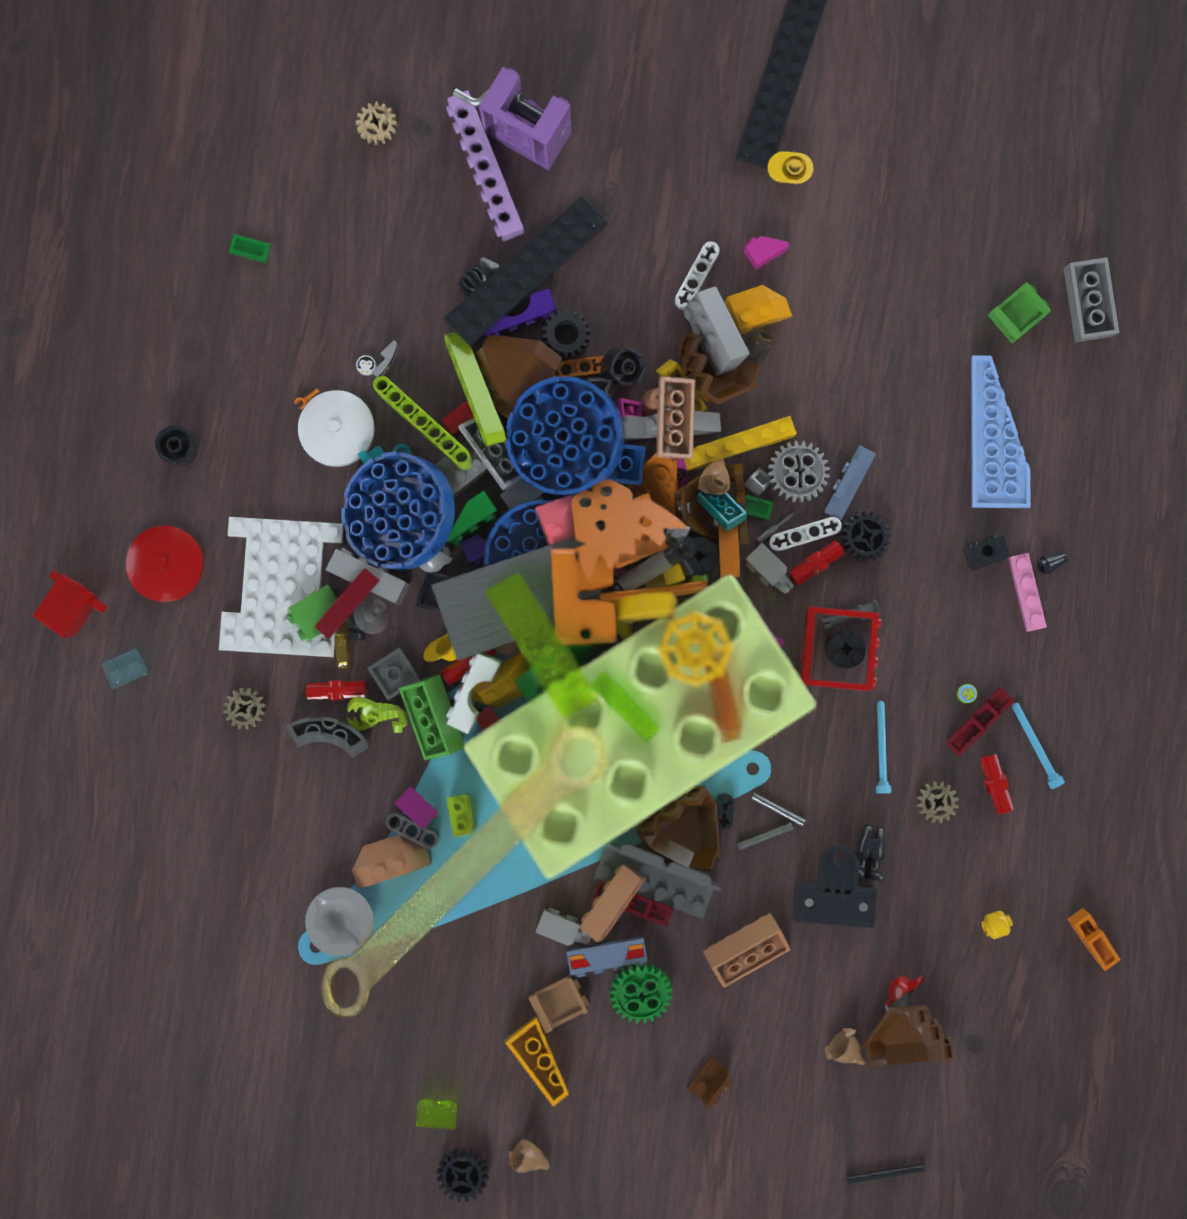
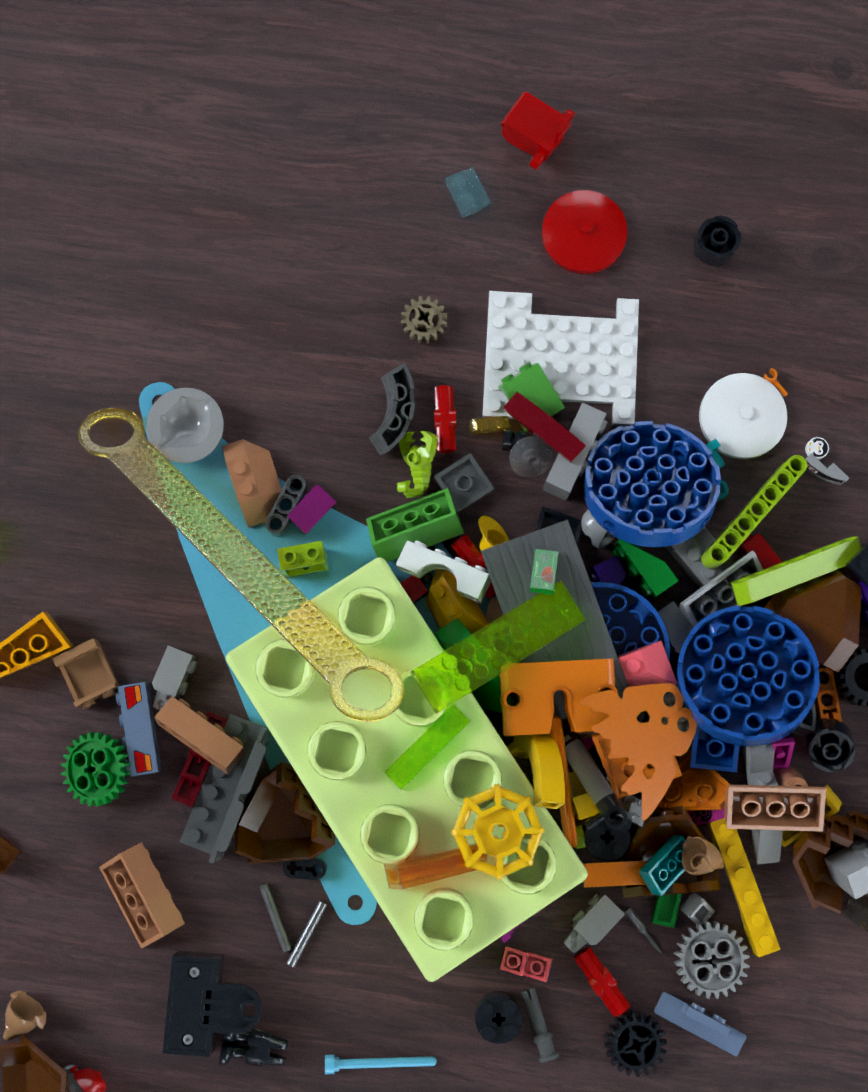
camera: 85 degrees right, 5 degrees down
(477, 606) = (544, 571): none -> tile
(797, 630) = (526, 964): none -> coral slope
(804, 532) = (635, 967): white beam -> none
(872, 661) = (500, 971): red window -> none

